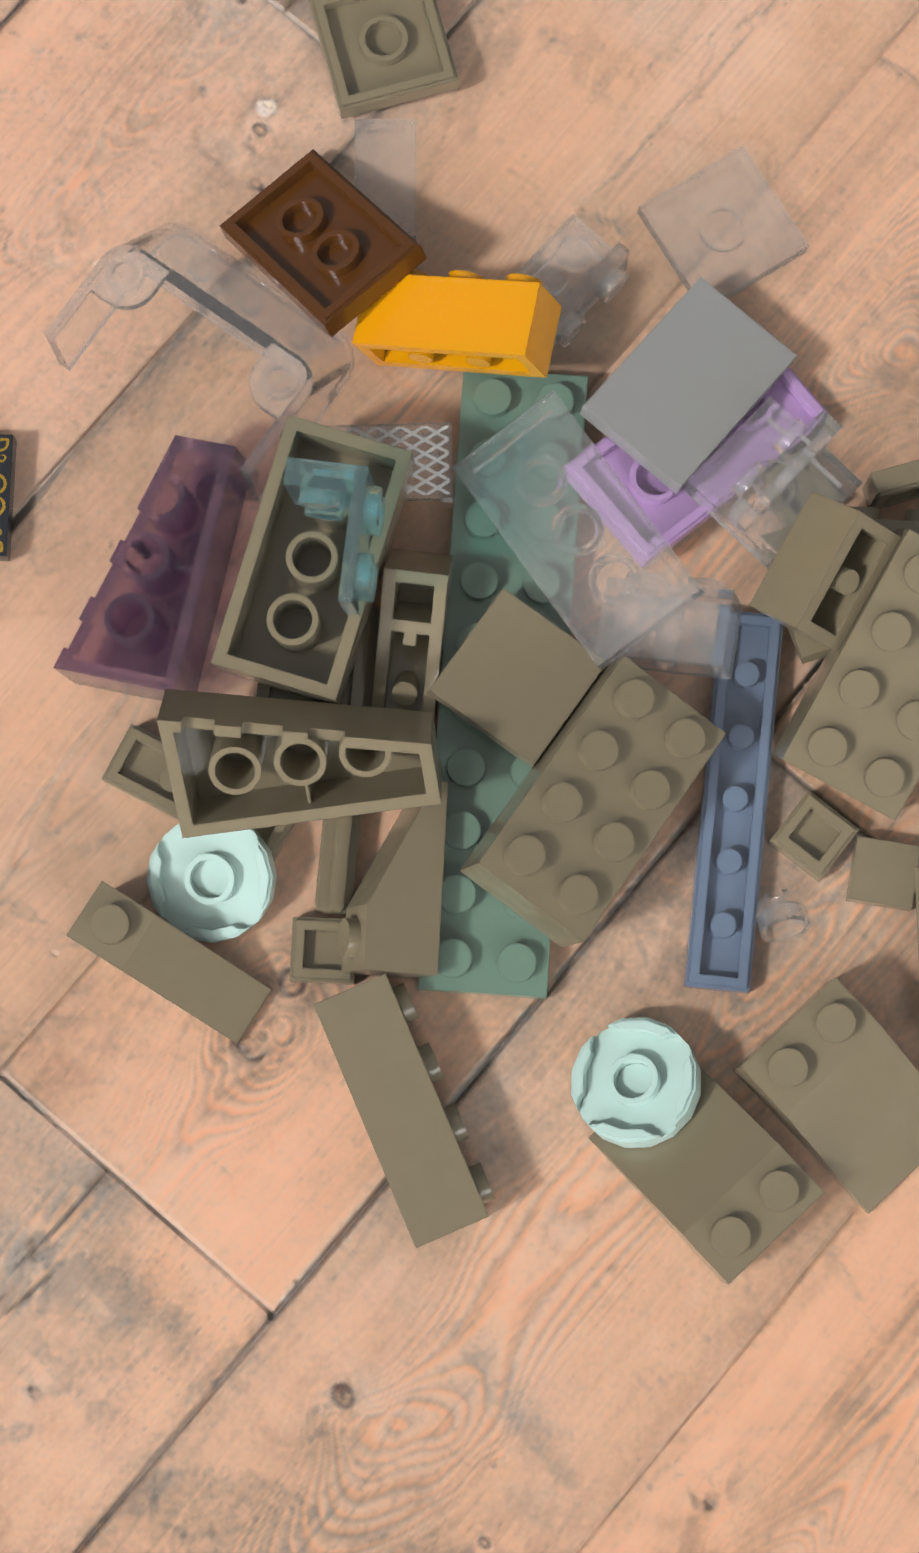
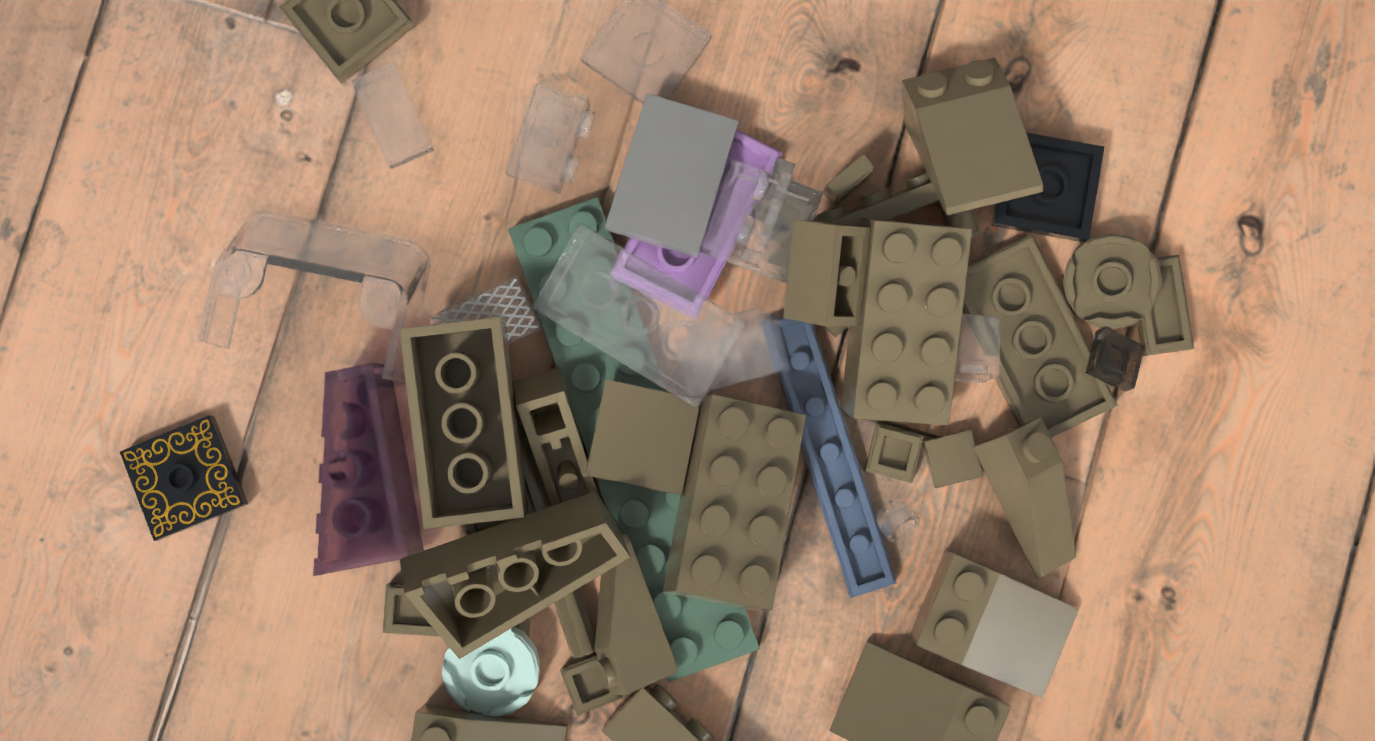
camera: 30 degrees left, 5 degrees up
(323, 243) = (368, 183): reddish brown tile -> none
(327, 492) = (488, 384): clear light blue bracket -> none
(462, 324) = (489, 200): light orange brick -> none
(636, 1083) = (847, 682): light aqua tile -> none

